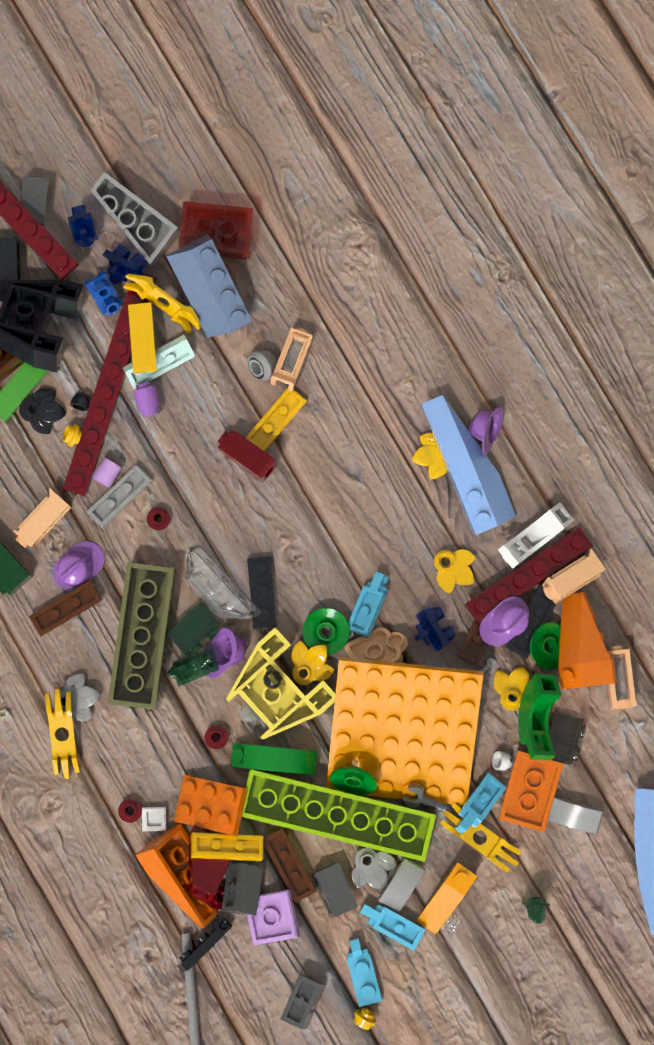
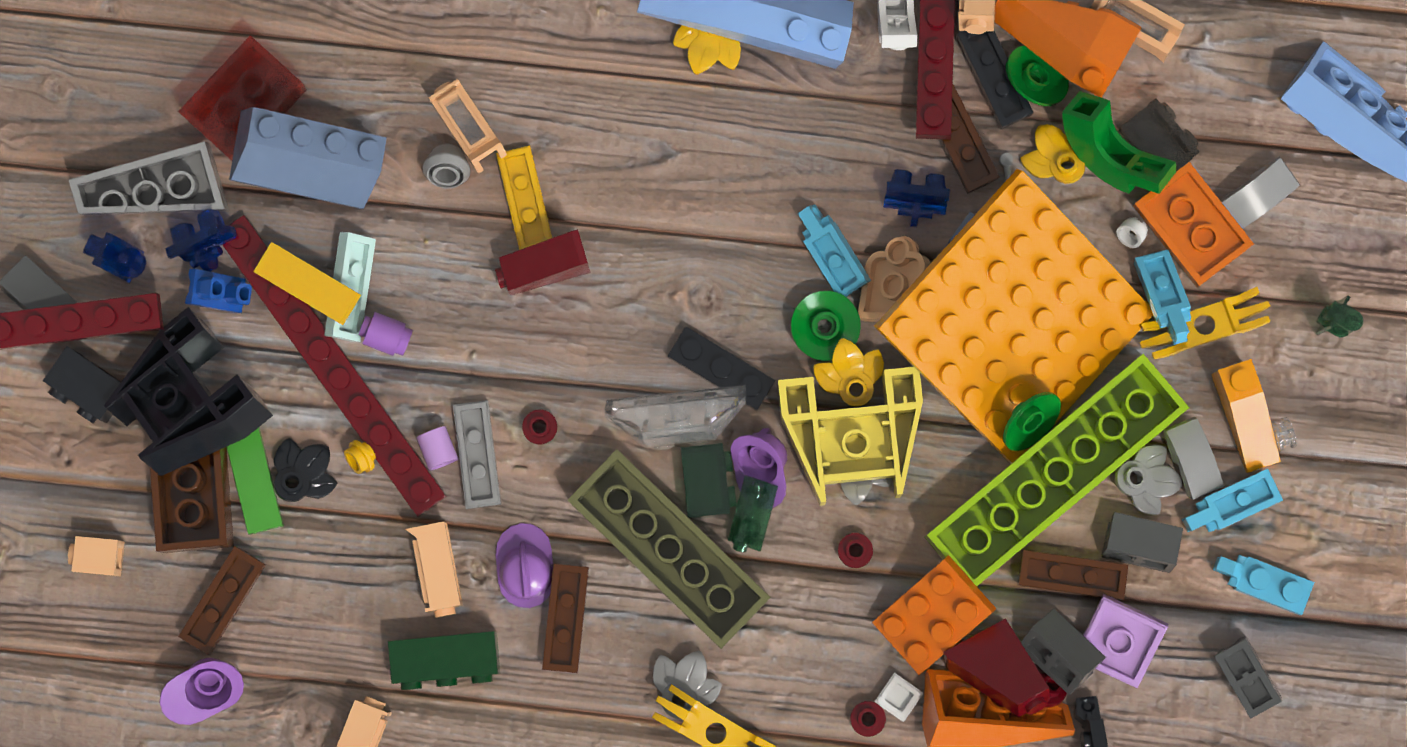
camera: 50 degrees left, 0 degrees up
(80, 401) = (326, 417): black hinge -> none
(179, 313) = (310, 218): yellow piece -> none
(226, 846) = (999, 631): yellow tile -> none
(268, 683) = (839, 436): black hinge -> none
(274, 759) = (933, 500): green arch -> none
(364, 1018) = (1320, 618): yellow plate -> none
(421, 798) = (1111, 356): dark grey bar -> none
(456, 571) = (867, 120): yellow plate -> none
(504, 621) = (972, 104): medium lavender piece -> none

